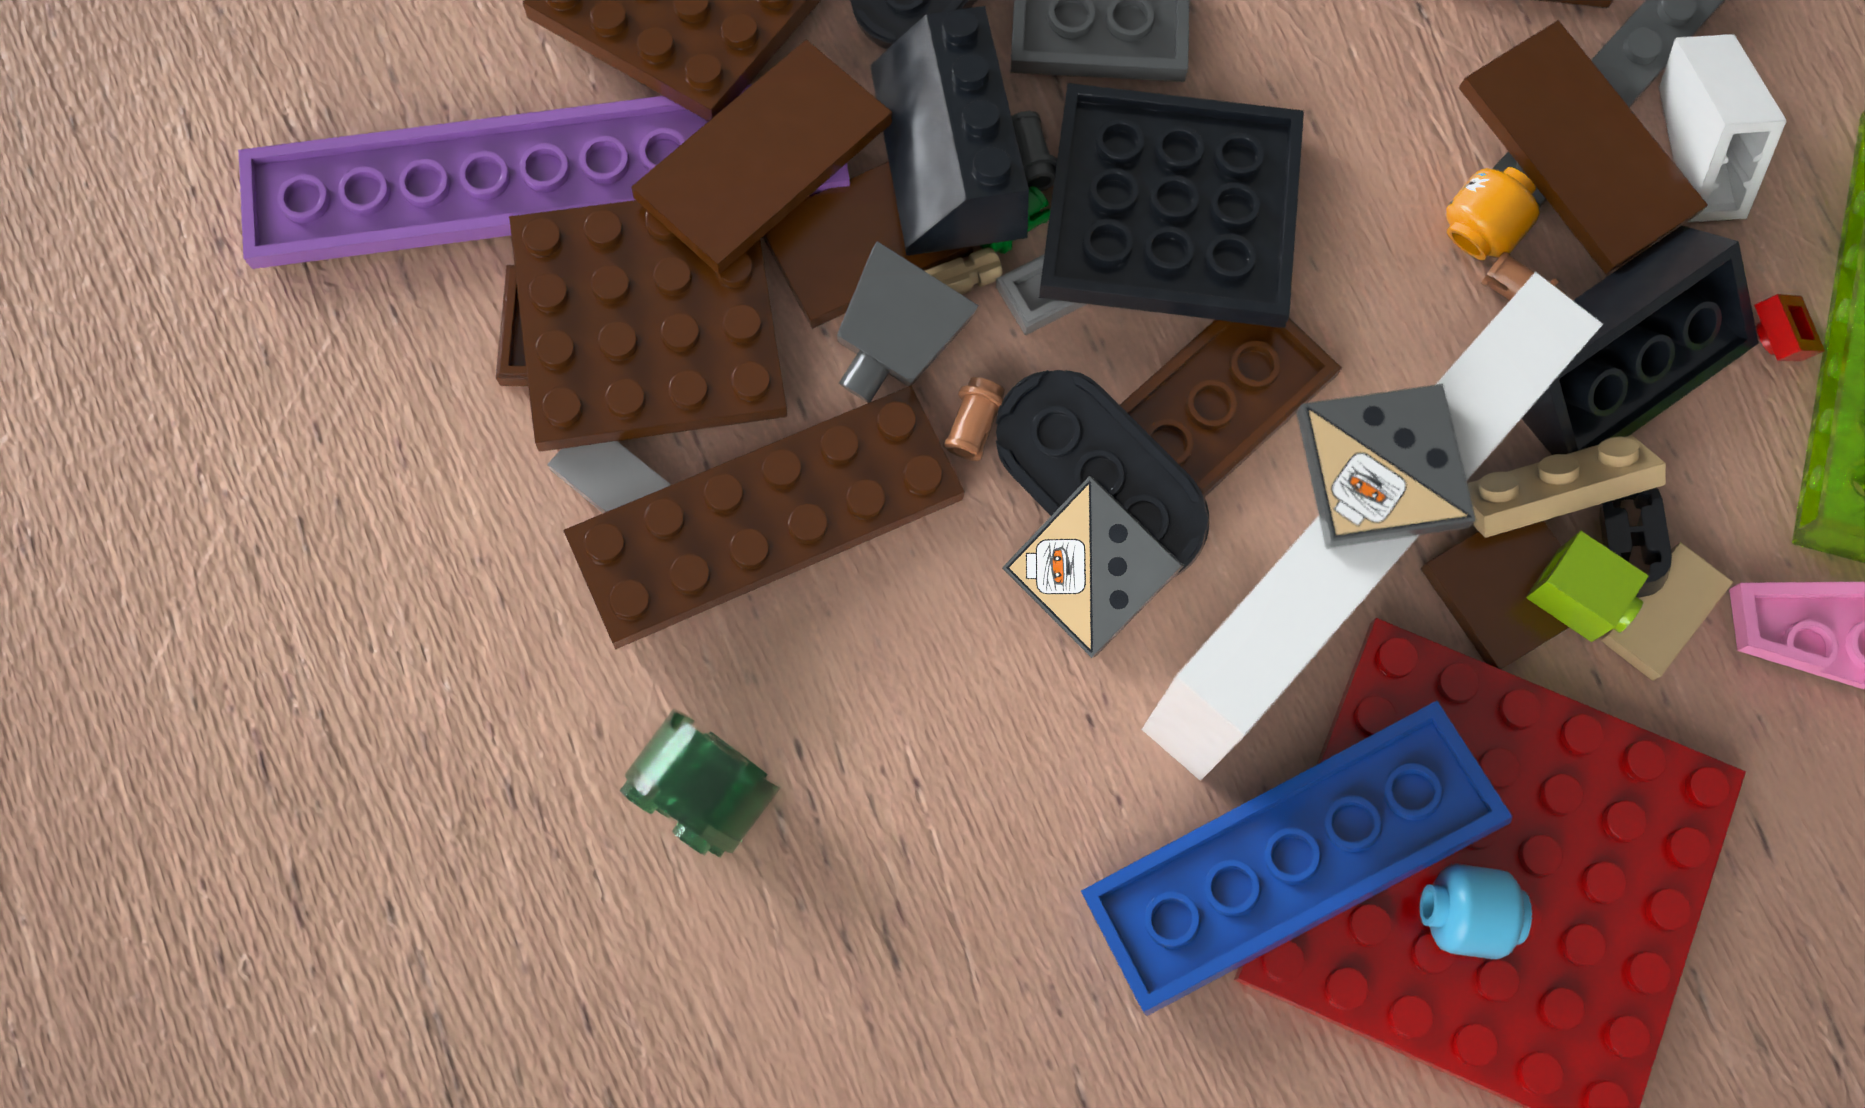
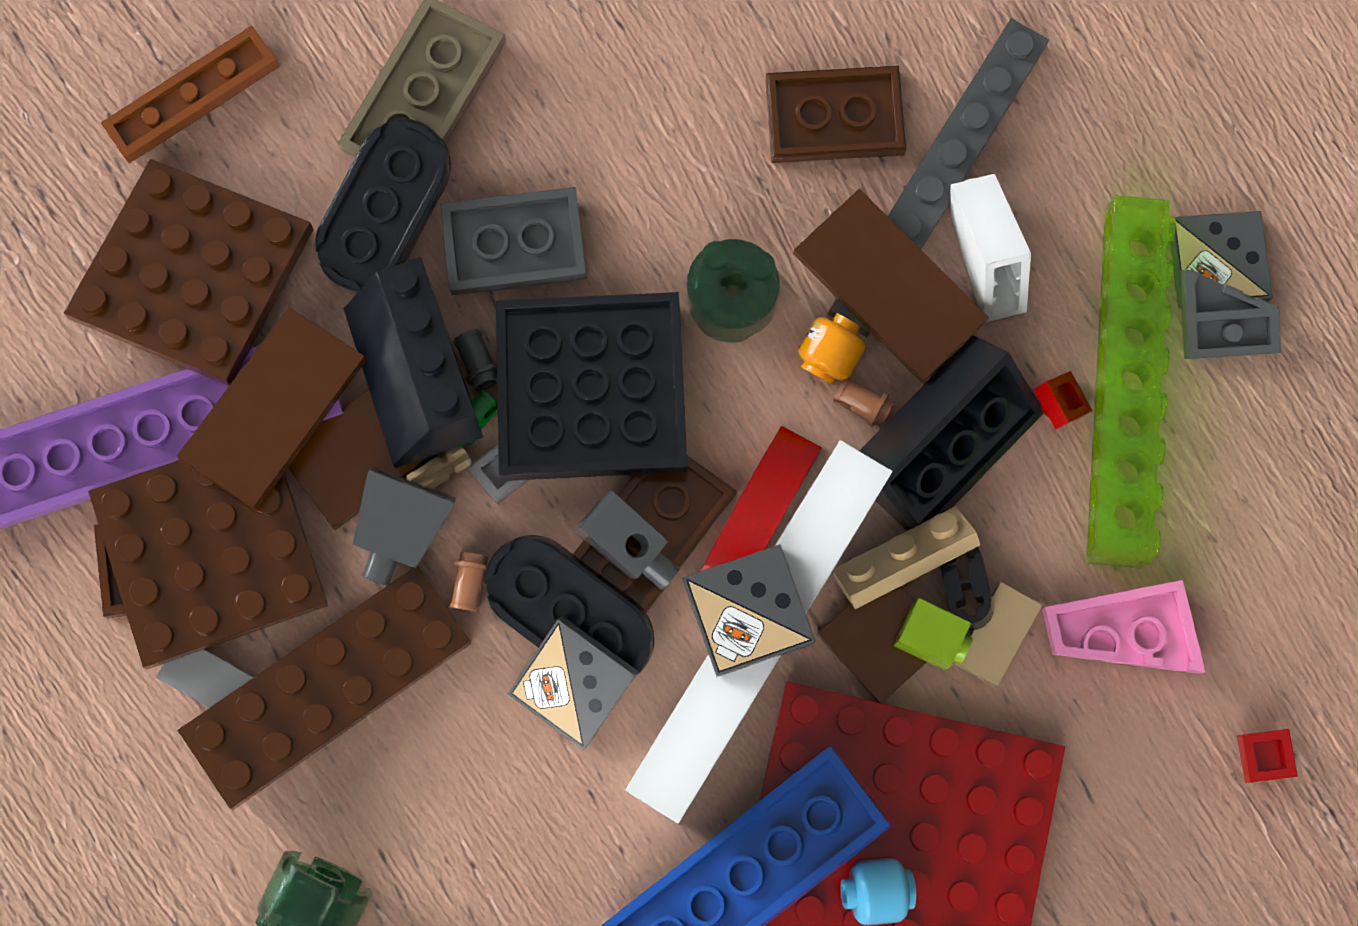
camera: 10 degrees left, 5 degrees up
(1195, 388) = (609, 527): none -> dark grey torso
(1374, 119) = (726, 265): none -> clear green brick
(1393, 362) = (765, 498): none -> red slope

